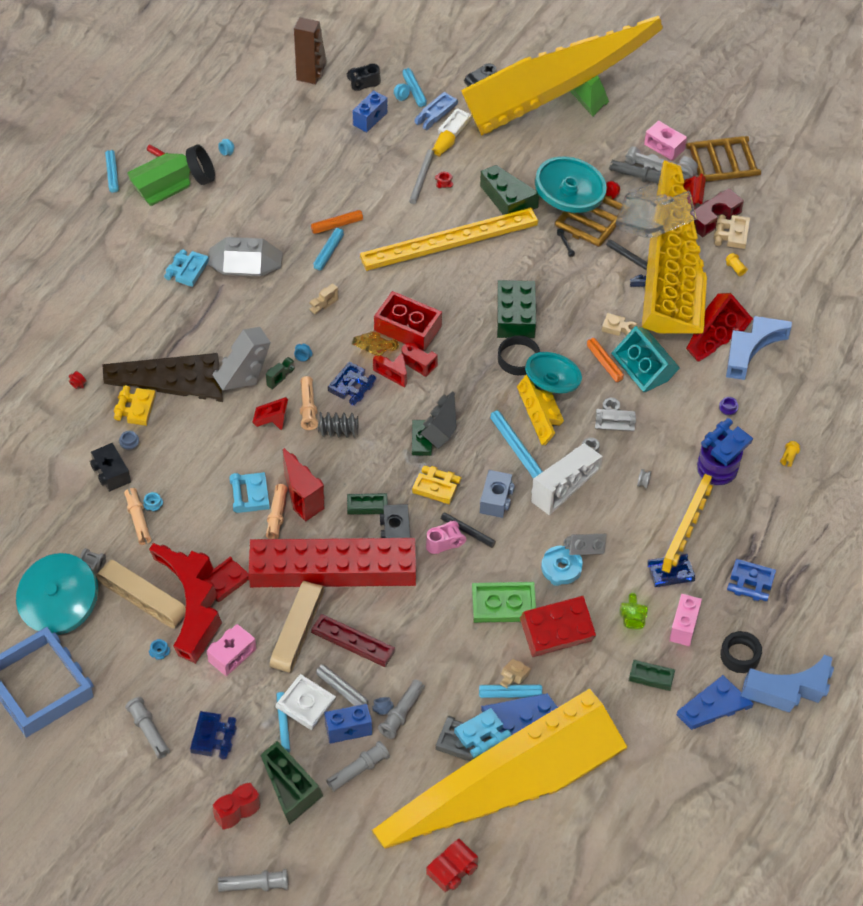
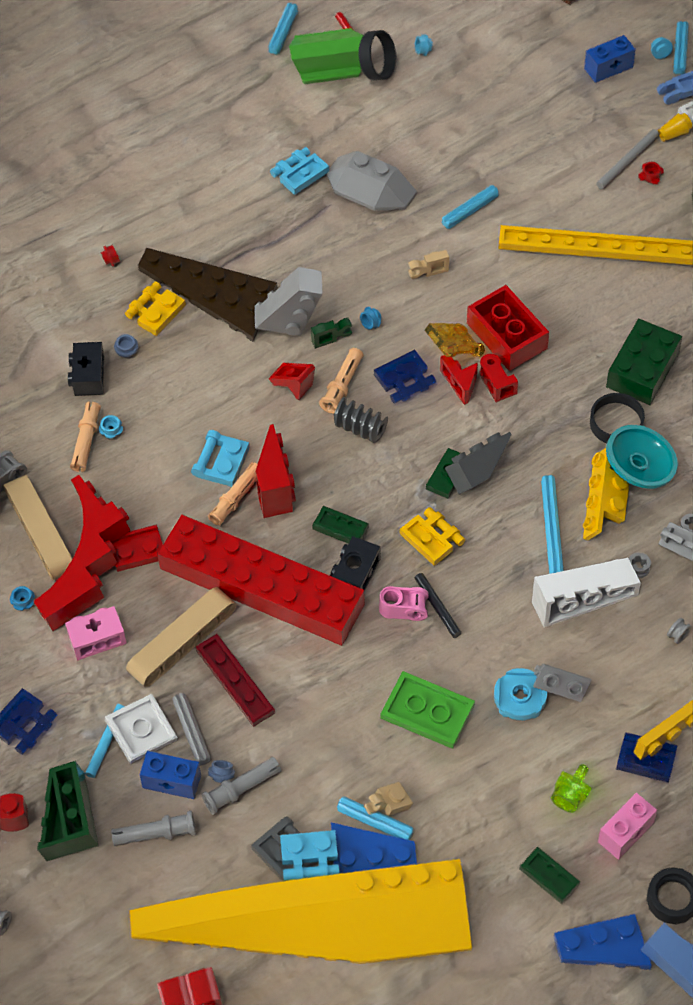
camera: 30 degrees right, 5 degrees up
(337, 221) = (498, 177): orange axle -> none
(365, 77) = (630, 15): black piece -> none
(496, 493) = (496, 563): sand blue brick -> none
(557, 626) = (468, 766): red brick -> none

